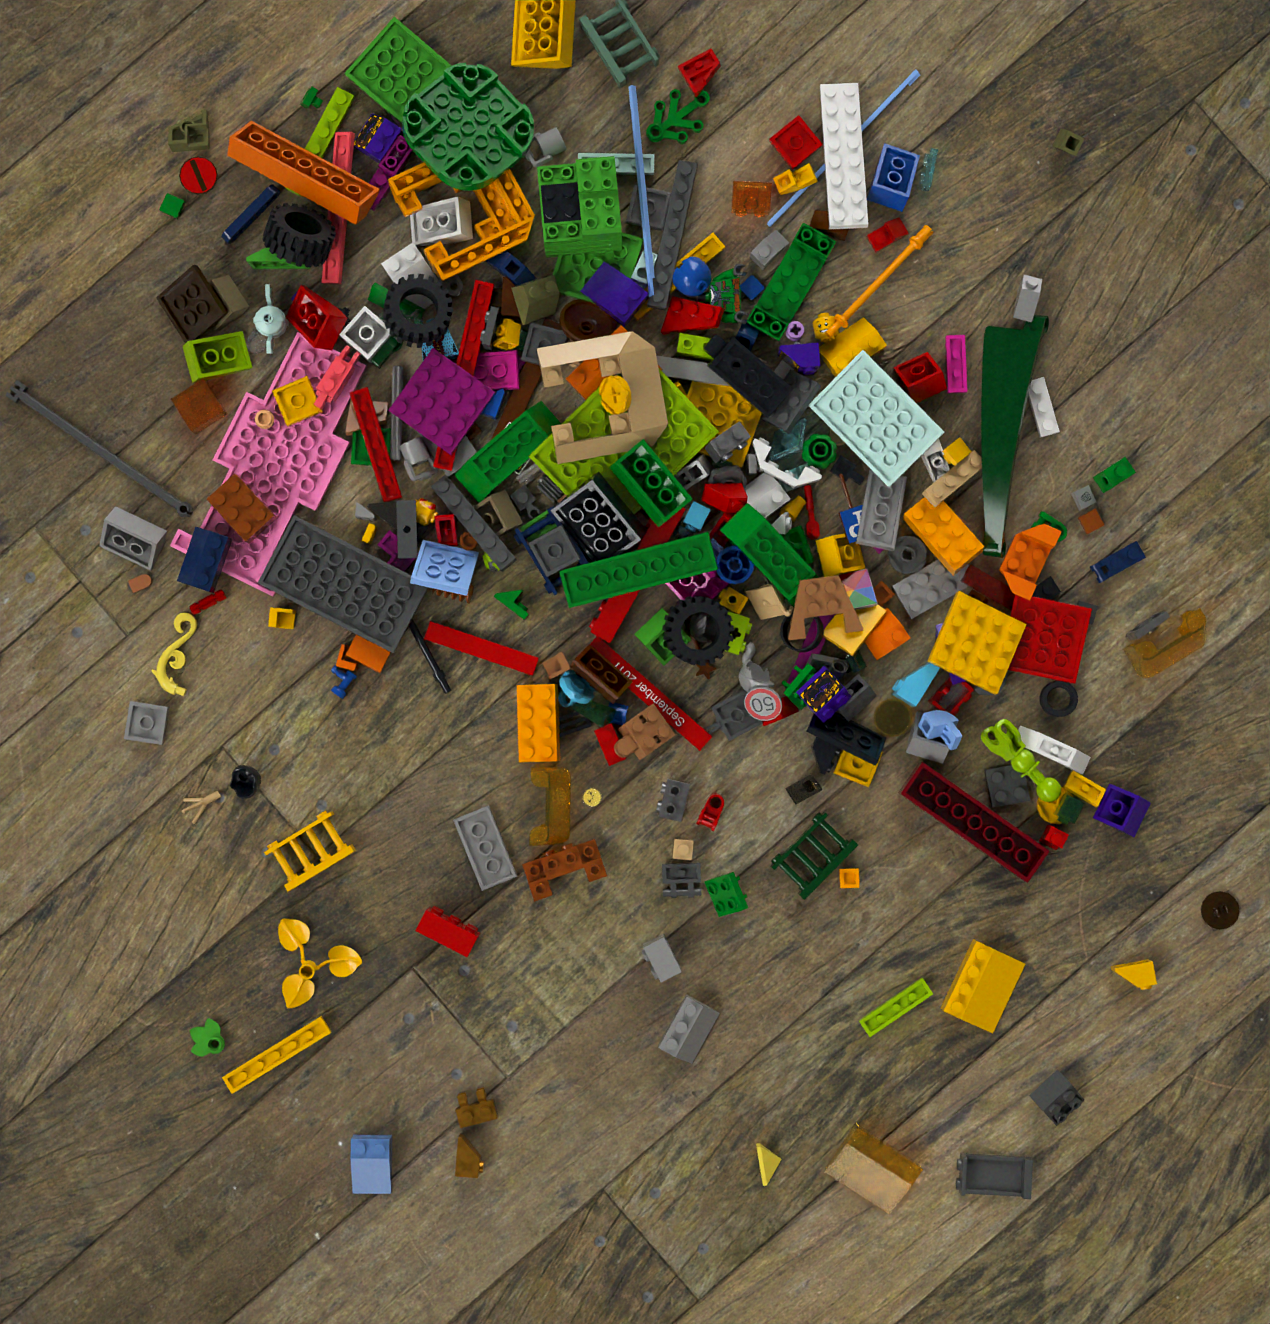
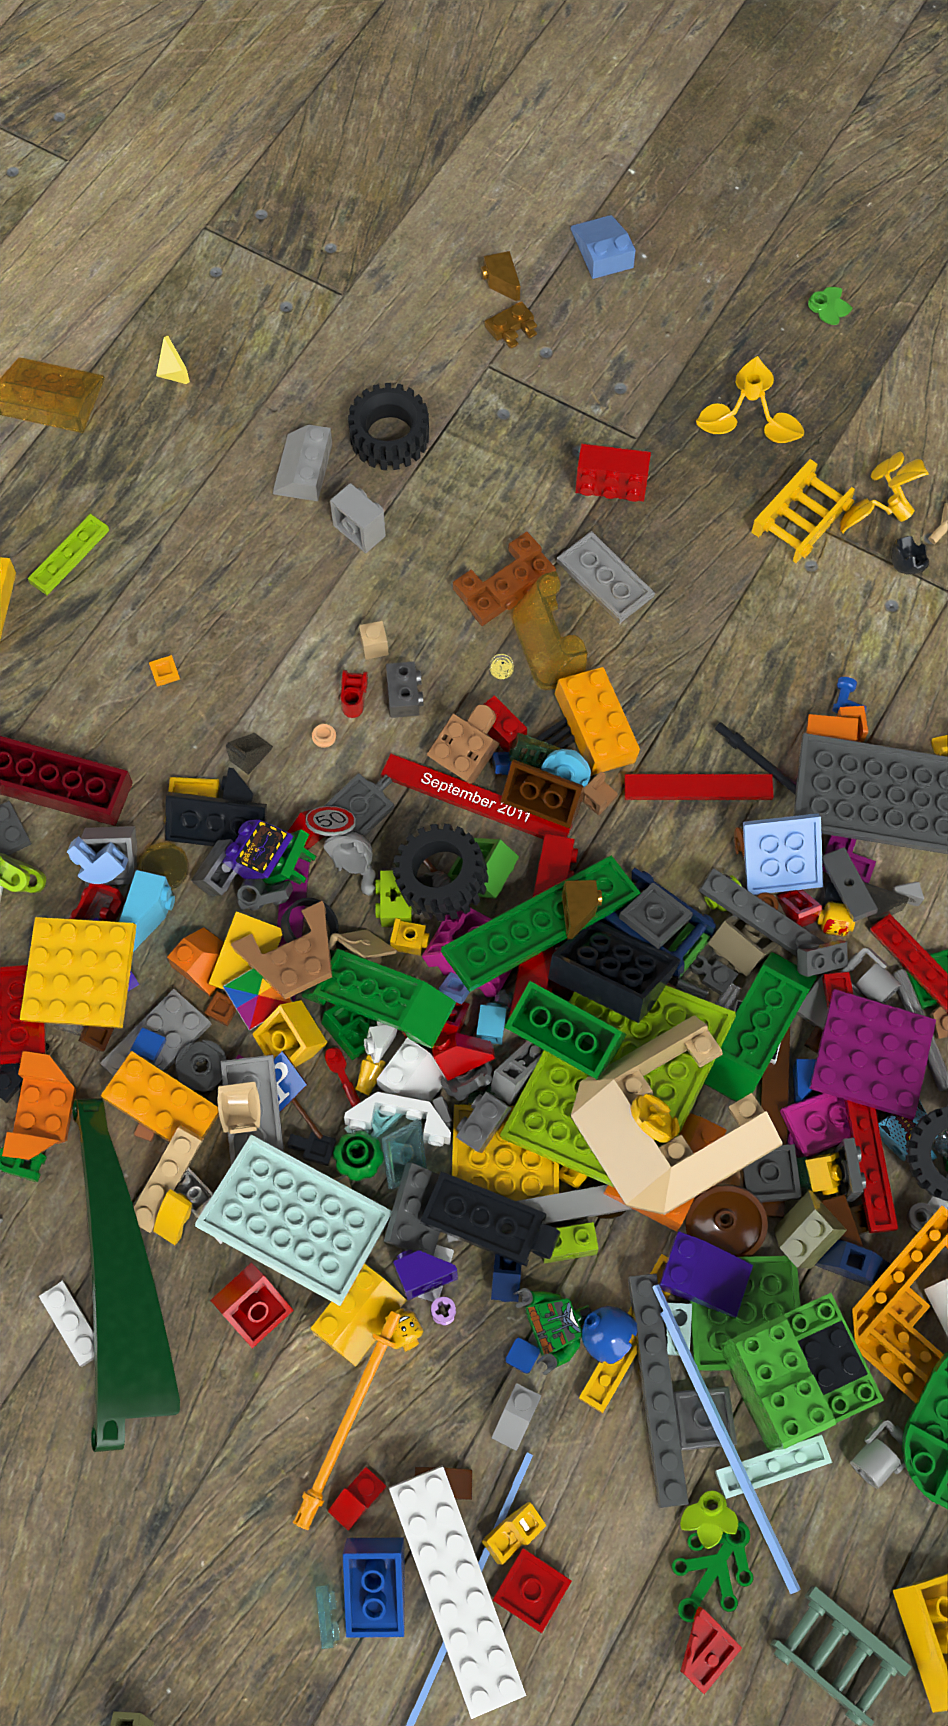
camera: 160 degrees right, 20 degrees down
(229, 831) = (897, 503): none -> yellow plant
(276, 1054) = (748, 311): yellow plate -> none
(369, 533) = (890, 871): yellow tile -> none
(452, 482) = (821, 958): none -> dark grey plate
(509, 599) = (689, 848): green slope -> none
(604, 1062) = (384, 404): none -> black tyre
(608, 569) = (579, 904): none -> pearl gold slope
(671, 144) = (707, 1522): none -> lime plate
(681, 873) = (367, 613): dark grey plate -> none
(690, 315) = (591, 1281): red wing -> none
(726, 894) = (306, 606): green plate -> none
(733, 565) = (426, 966): blue cylinder -> none
(744, 783) = (324, 735): none -> light nougat plate
(751, 198) = (567, 1477): clear orange slope -> none
(791, 282) = (471, 1375): green slope -> none
(819, 873) = (200, 663): dark green fence -> none
(856, 662) = (227, 909): clear green tile -> none
(890, 507) = (239, 1107): none -> tan piece
(941, 579) = (148, 1045): none -> blue tile
(956, 364) = (207, 1342): dark pink plate -> none
(988, 586) = (85, 1058): clear red tile -> none
(1027, 298) = (130, 1466): light grey slope -> none

